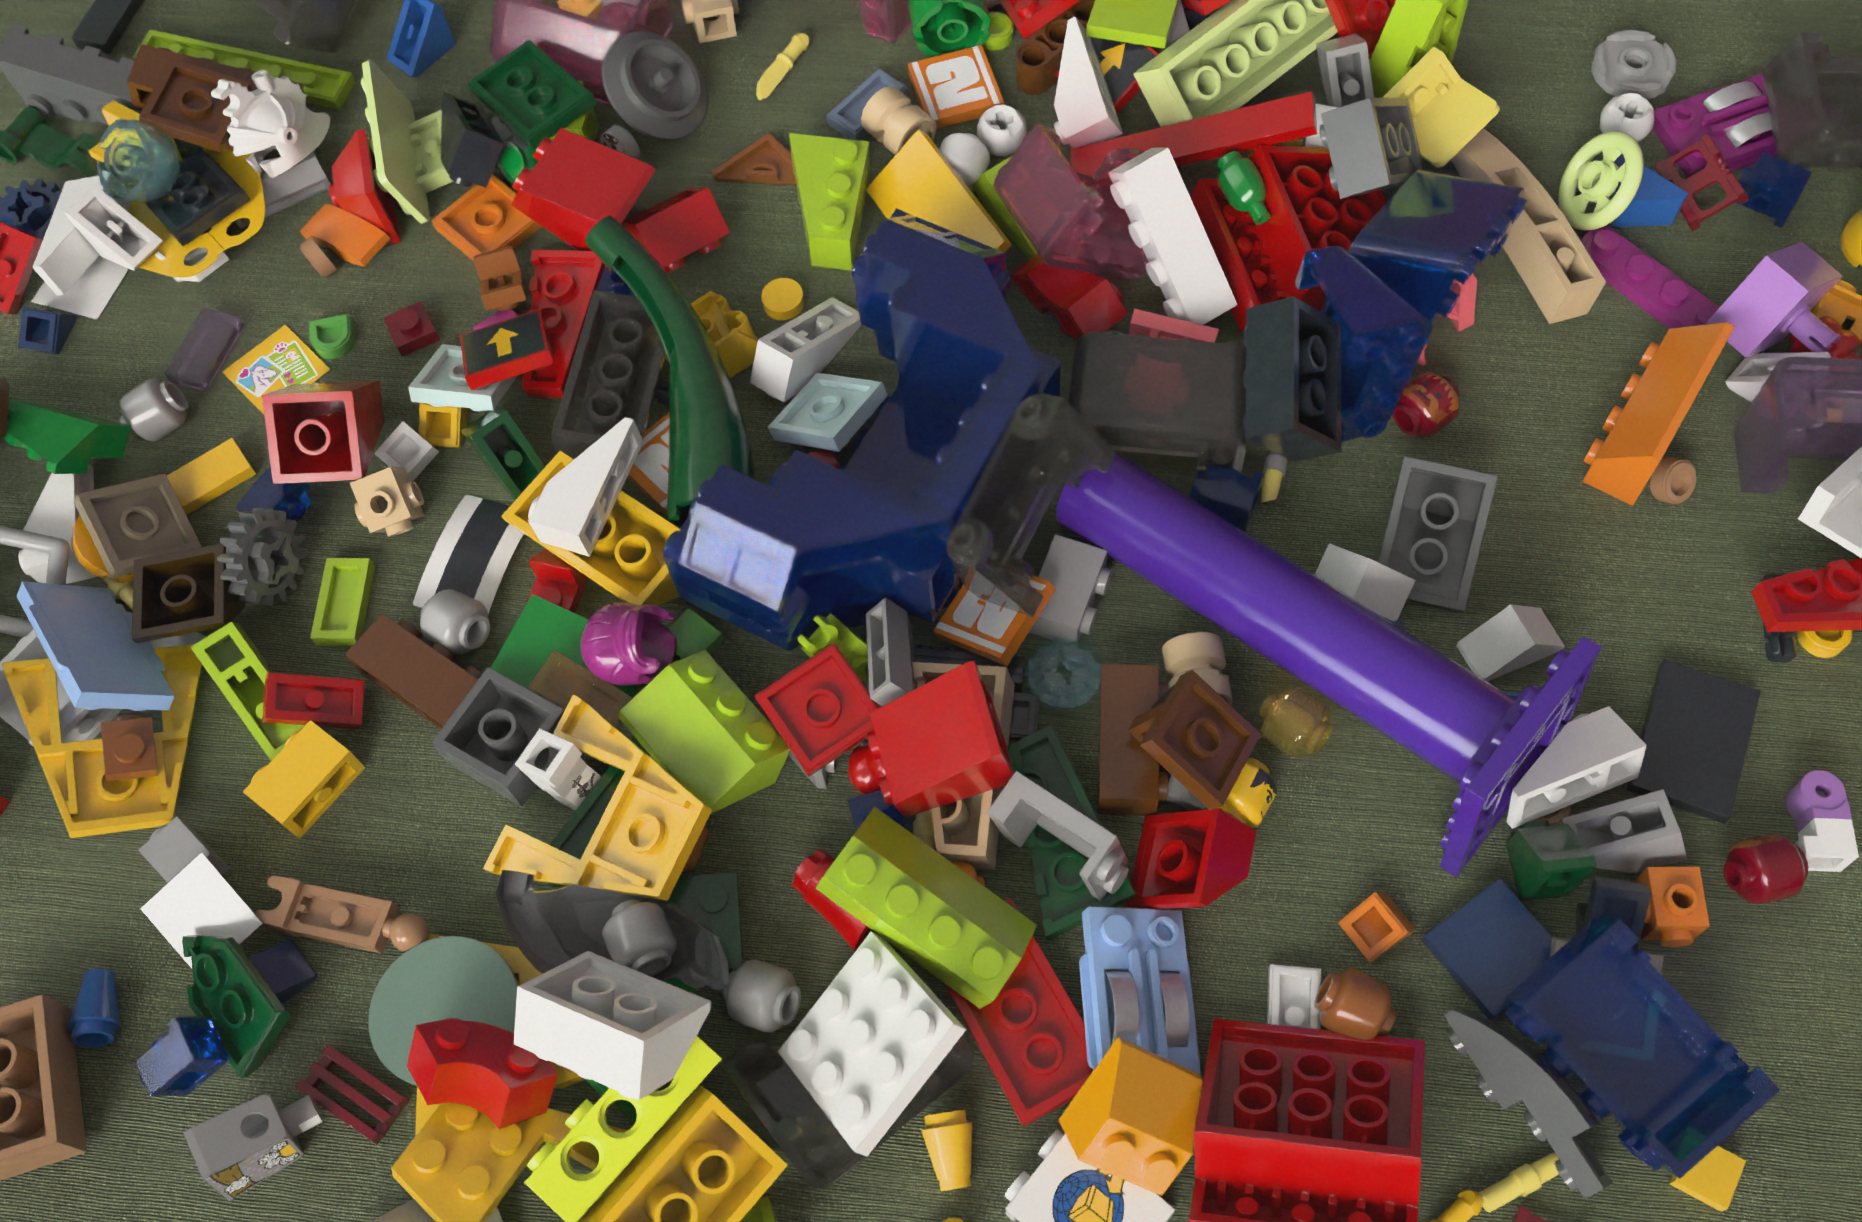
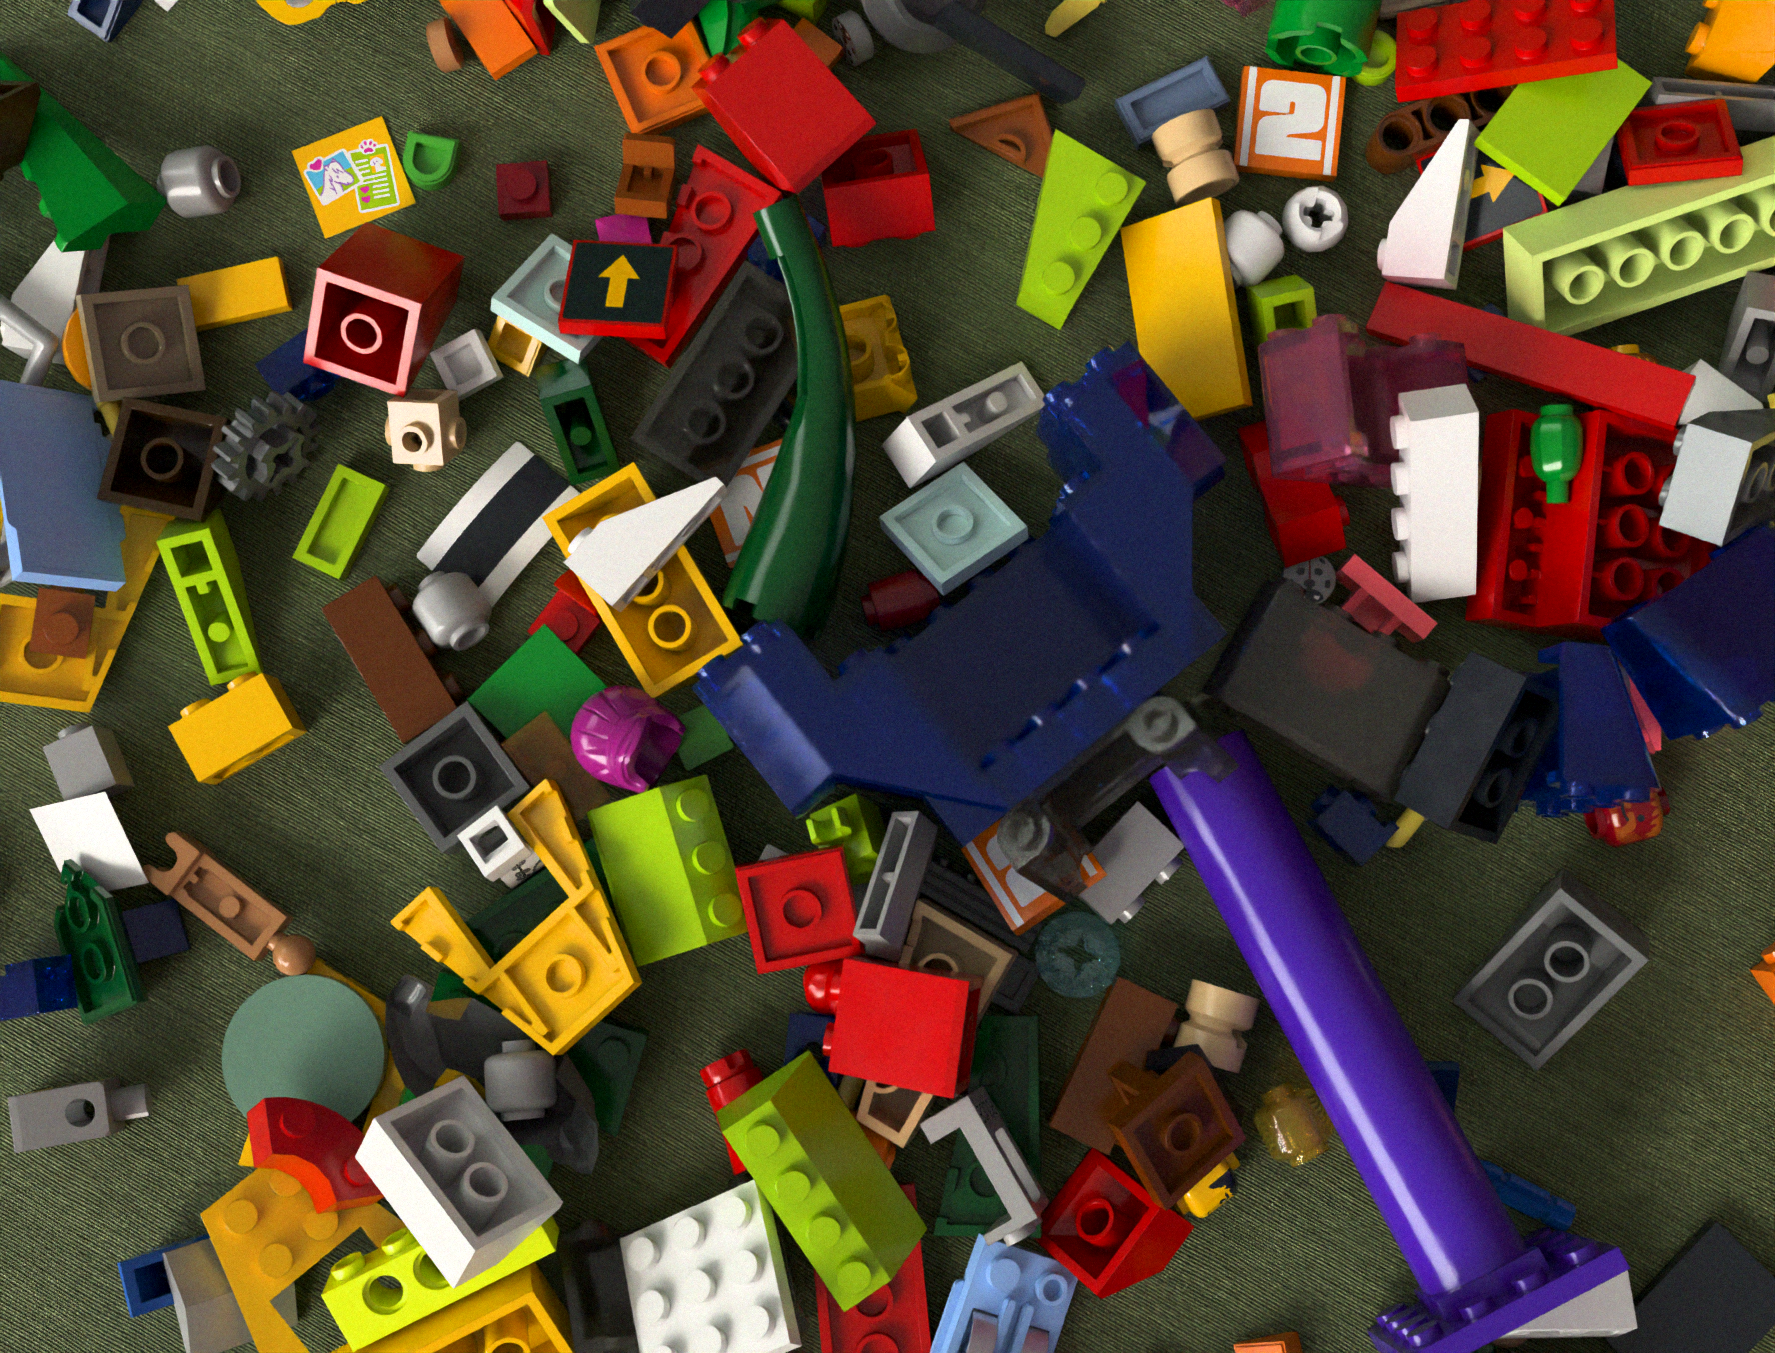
camera: 20 degrees right, 20 degrees up
(205, 349) = (280, 114): tile -> none
(313, 698) = (272, 644): red plate -> none
(320, 1072) = (170, 1102): dark red tile -> none
(735, 107) = (1009, 52): none -> black tile
(762, 996) = (626, 1176): light grey head -> none
(782, 299) = (963, 339): yellow tile -> none
(1366, 581) = (1442, 993): white slope -> none
(1509, 642) = (1566, 1129): white slope -> none

